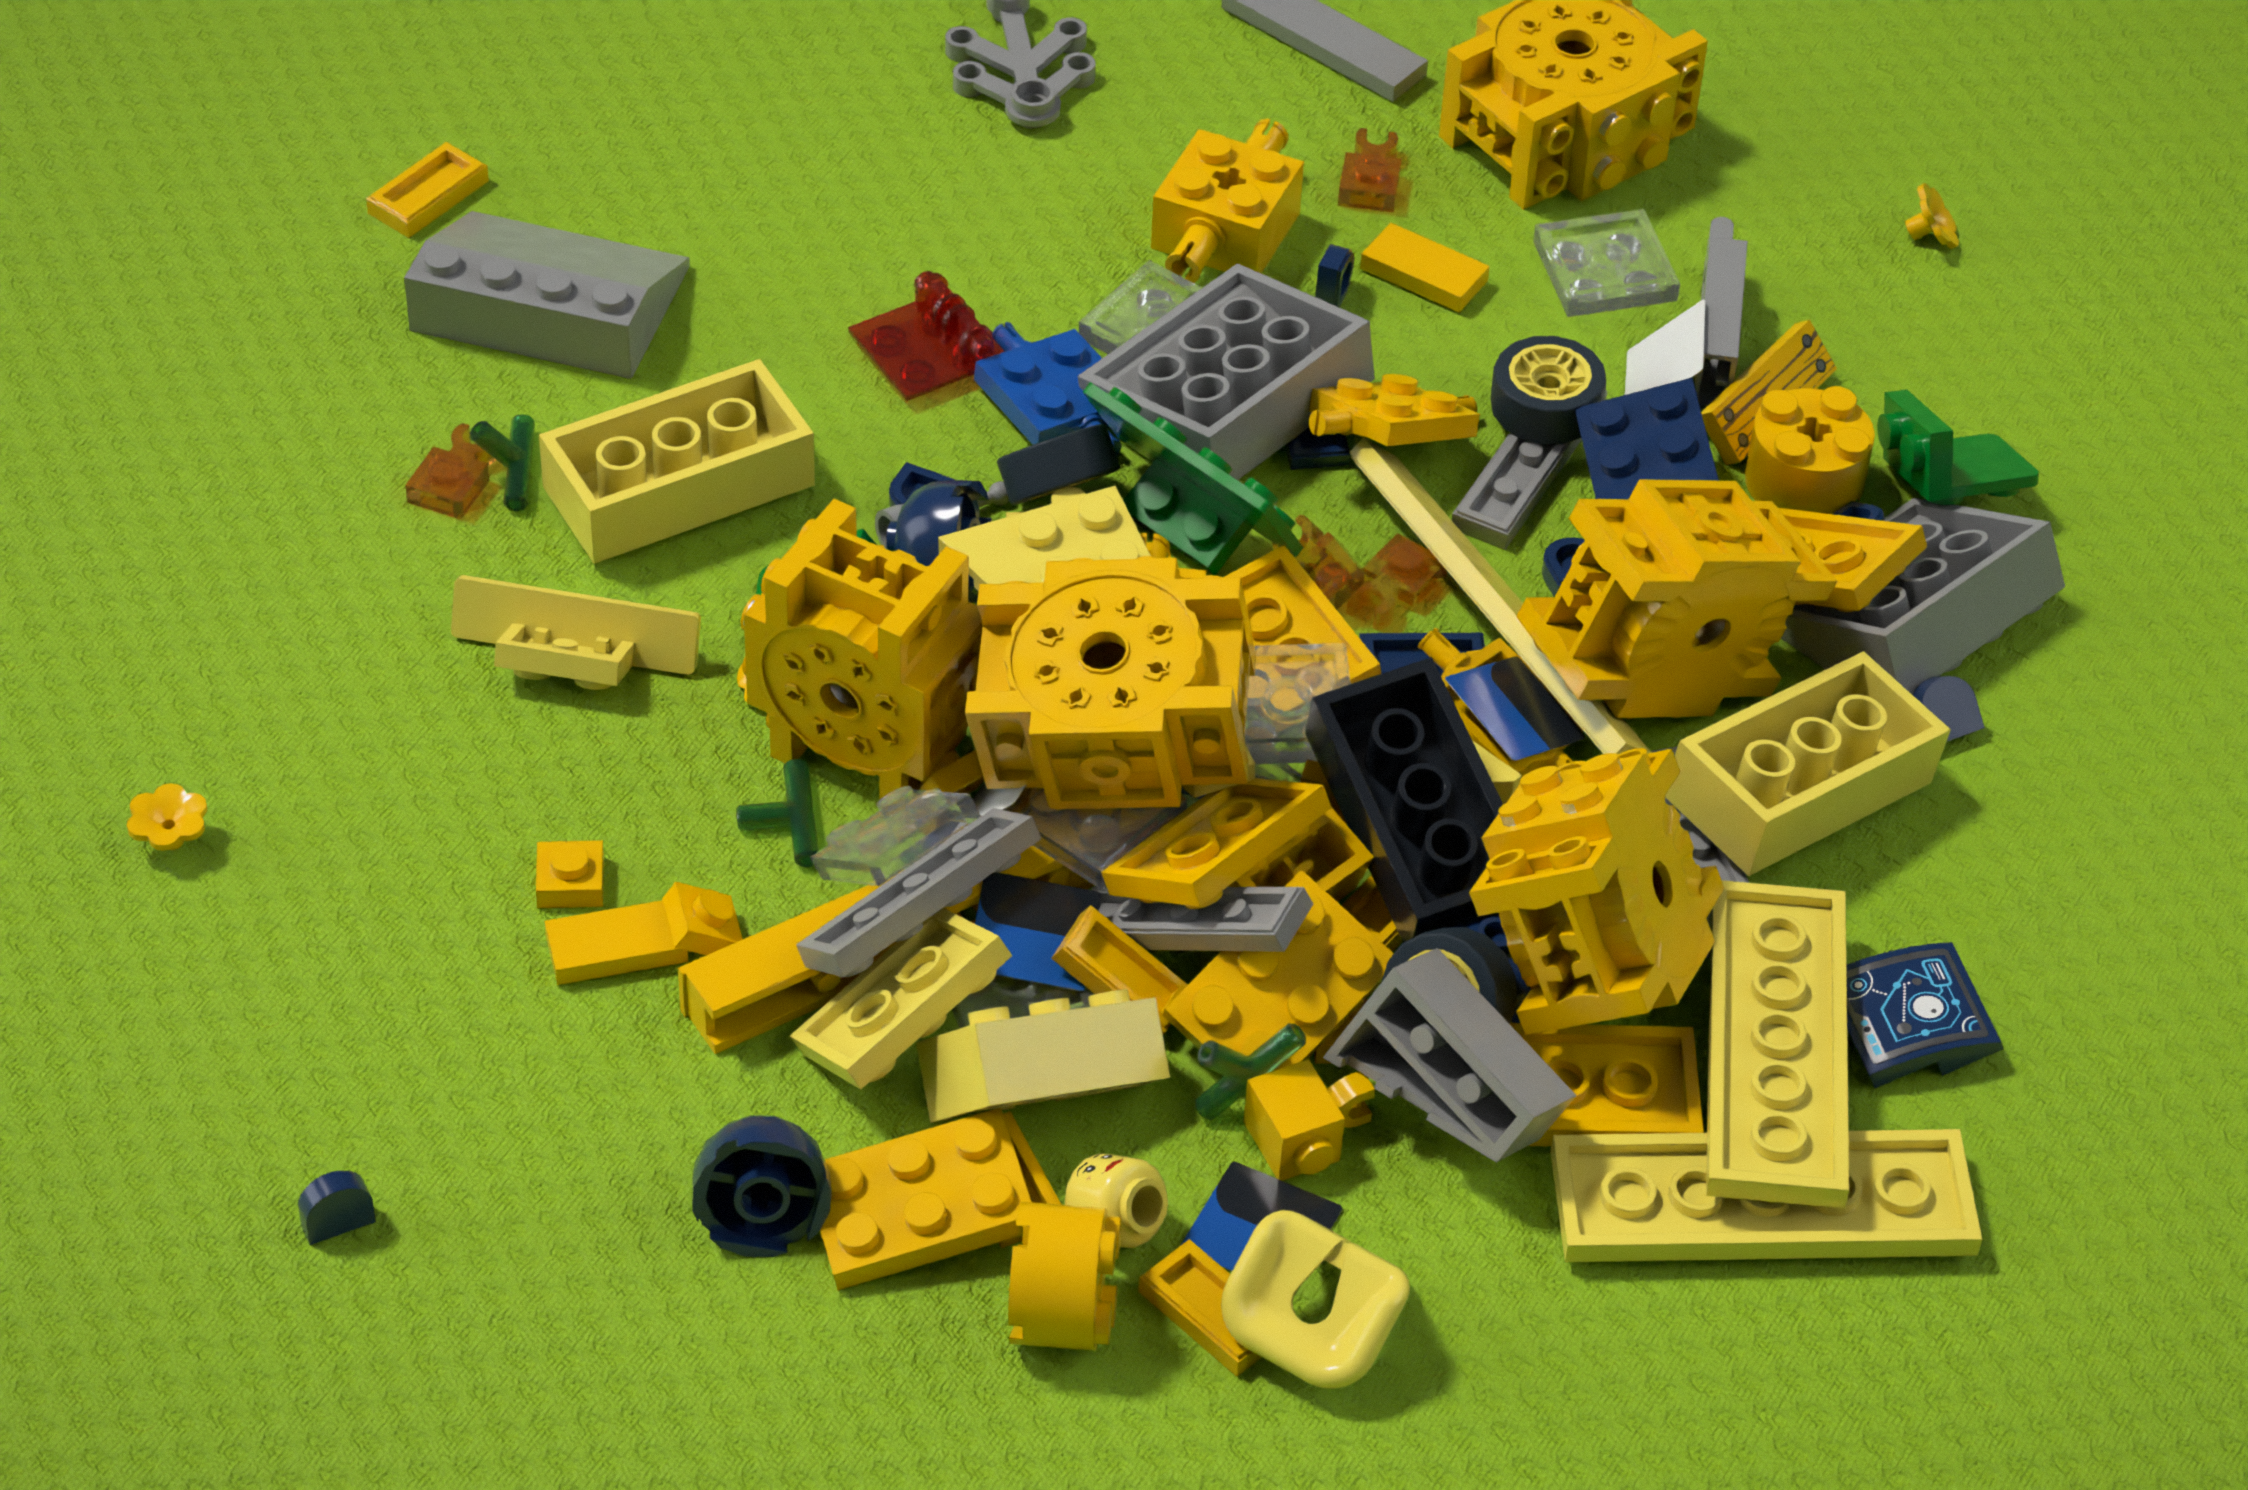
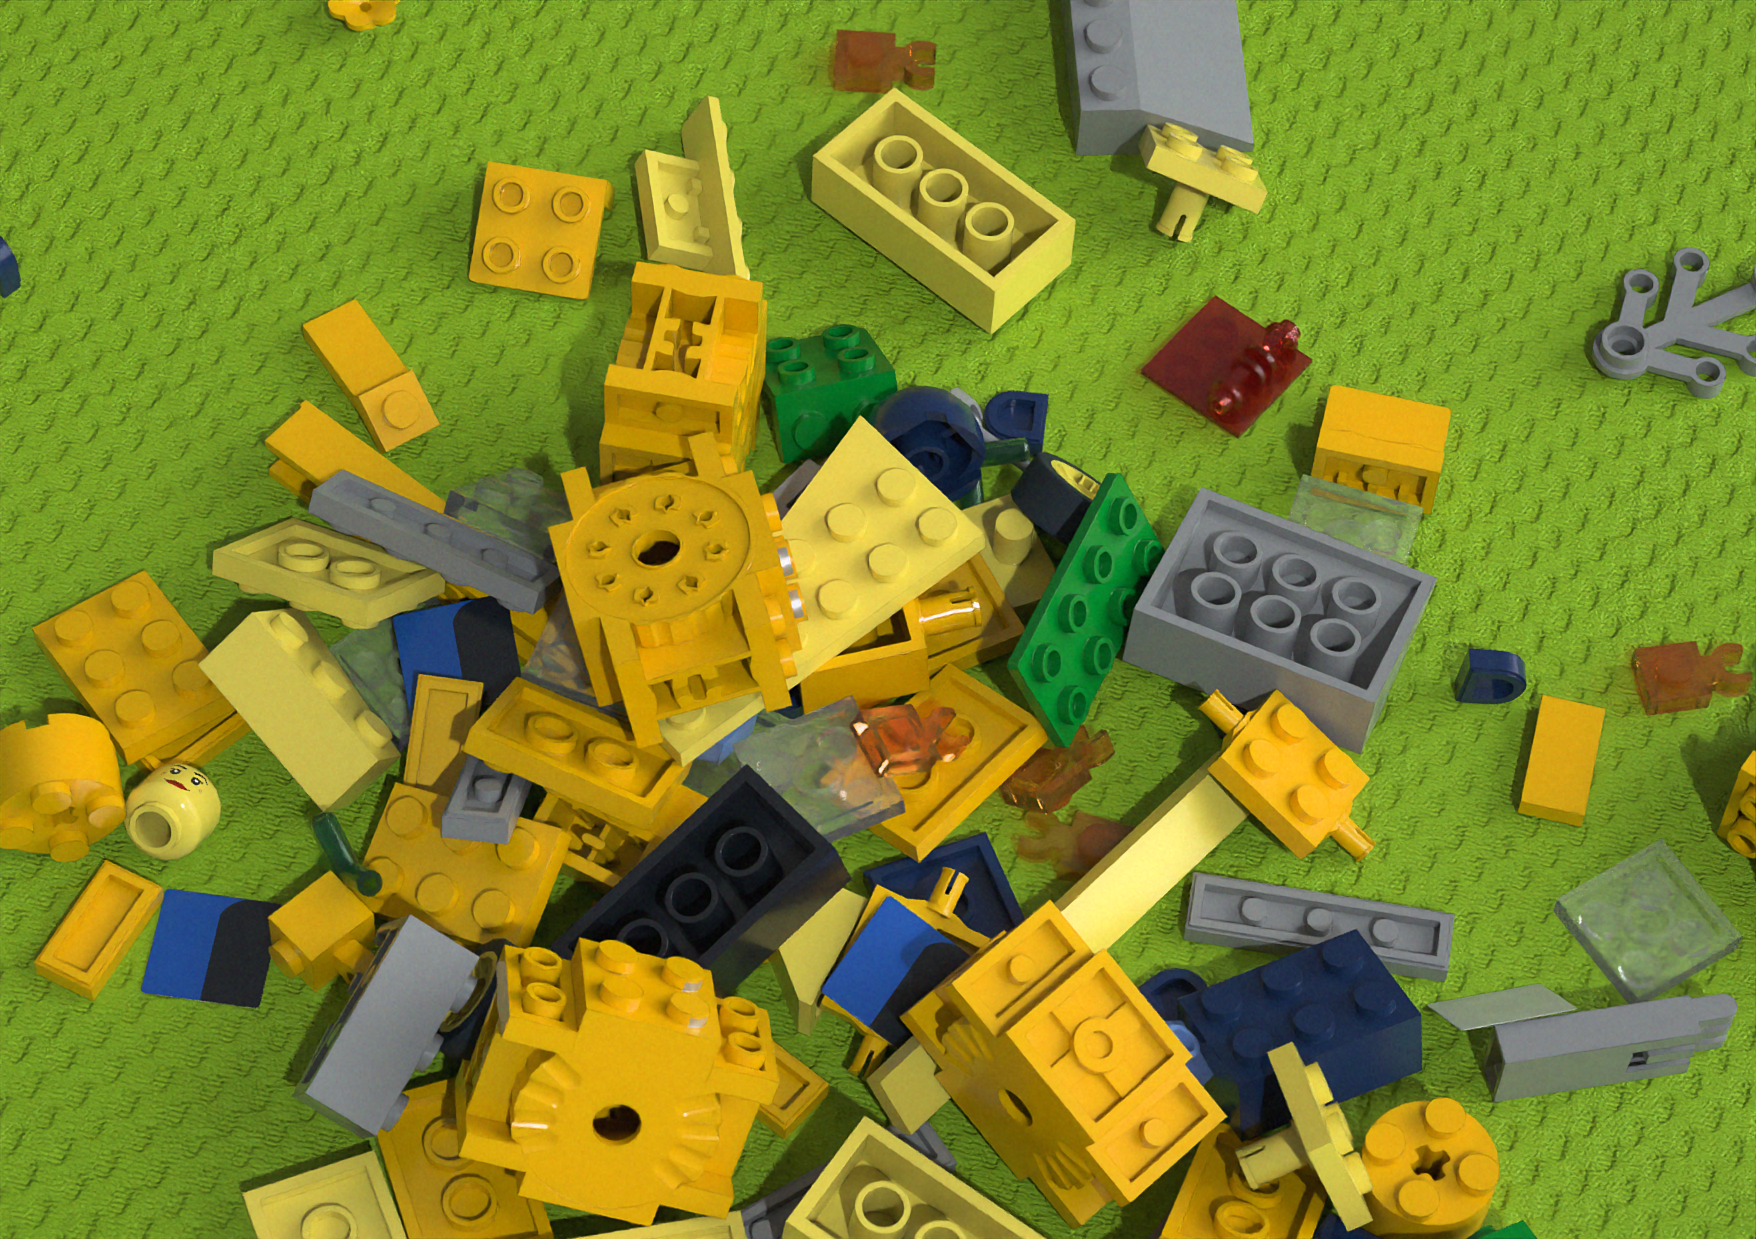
camera: 70 degrees right, 10 degrees up
(512, 453) = (912, 86): clear green piece -> none
(535, 756) = (539, 230): none -> yellow bracket
(570, 874) = (426, 303): yellow plate -> none
(734, 276) = (1198, 176): none -> light yellow plate
(761, 1186) = (99, 537): cylinder -> none
(793, 813) = (563, 445): clear green piece -> none
(1040, 384) = (1216, 458): blue plate -> none
(1068, 272) = (1382, 445): none -> yellow bracket
(1227, 202) = (1543, 552): yellow brick -> none
(1262, 1291) = (150, 1017): light yellow piece -> none
(1284, 624) = (904, 744): none -> clear orange plate
(1541, 386) = (1400, 874): black wheel -> none
(1789, 469) = (1316, 1138): none -> light yellow plate
(1790, 363) = (1527, 1123): yellow tile -> none

